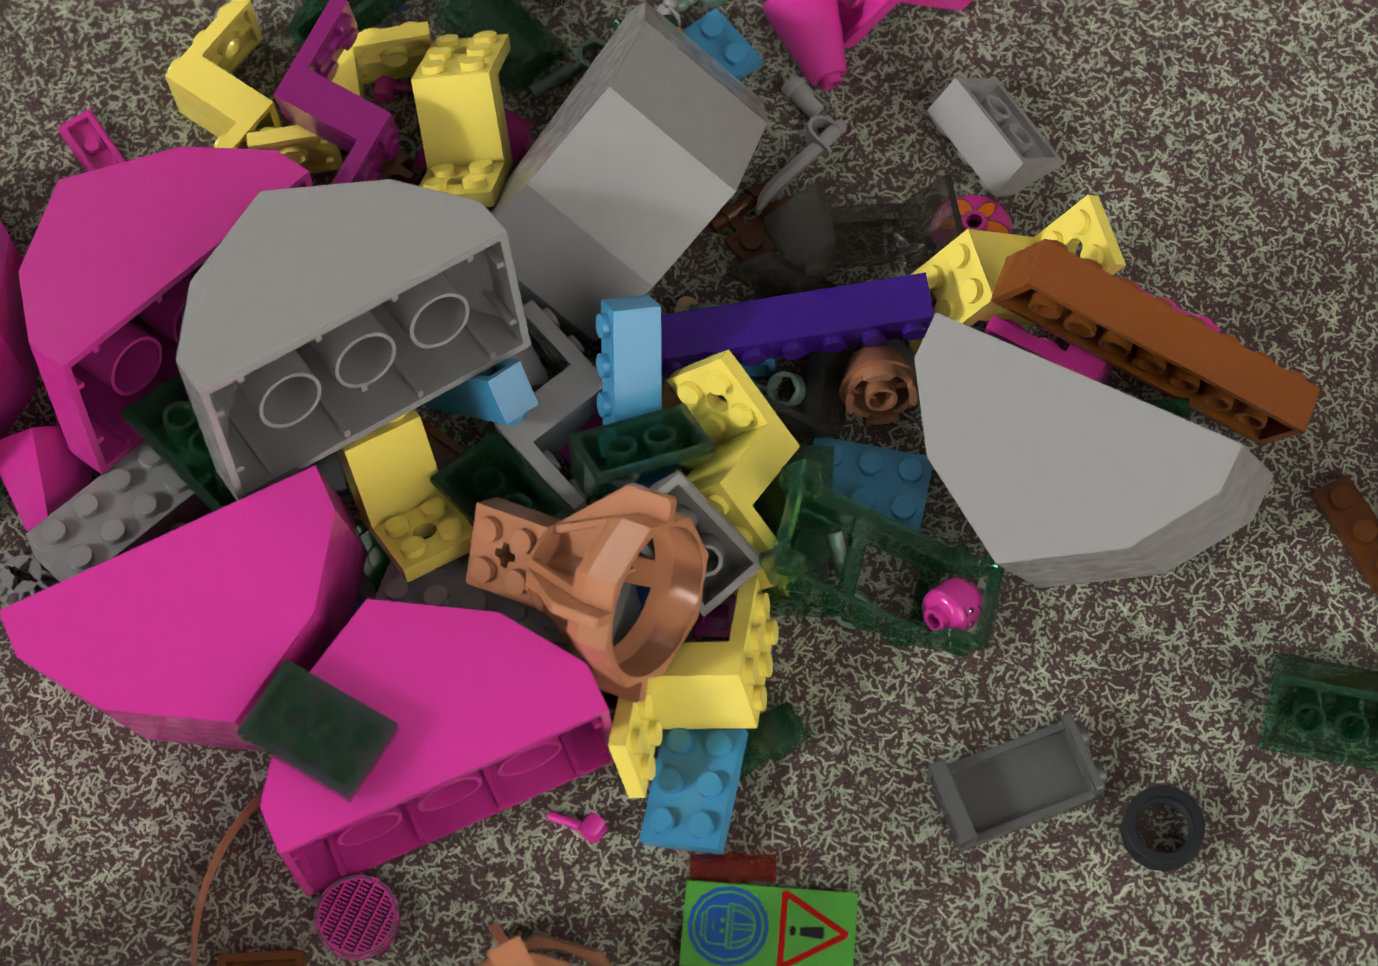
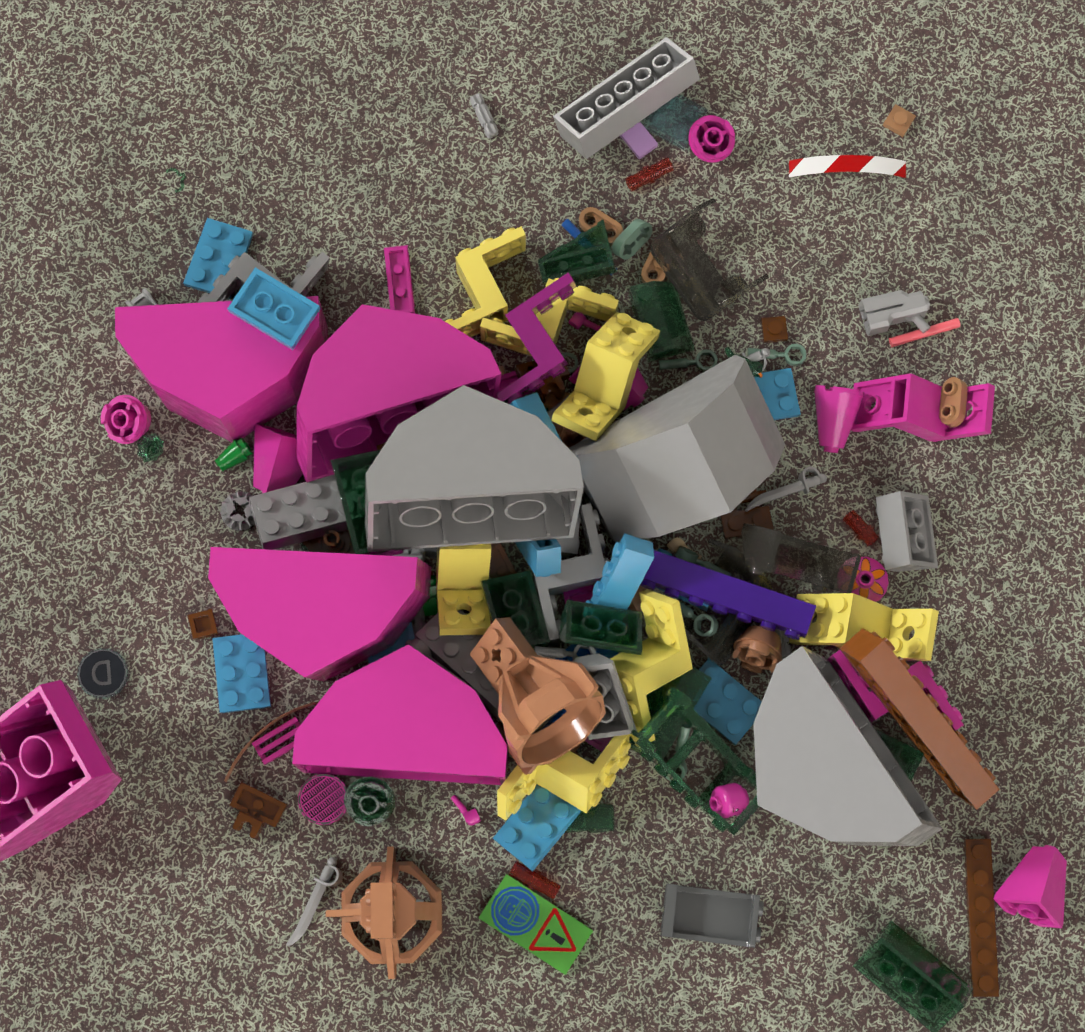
camera: 20 degrees right, 10 degrees up
(47, 761) = (203, 624): none -> reddish brown plate
(140, 801) = (240, 674): none -> dark azure plate
(233, 861) = (261, 752): none -> dark pink tile
(318, 730) = (345, 708): clear green plate -> none
(426, 876) = (369, 800): none -> clear green cone
(804, 97) = (811, 450): light grey pin -> none
(929, 161) = (861, 528): none -> clear red pin
(1165, 796) = (794, 981): black tyre -> none

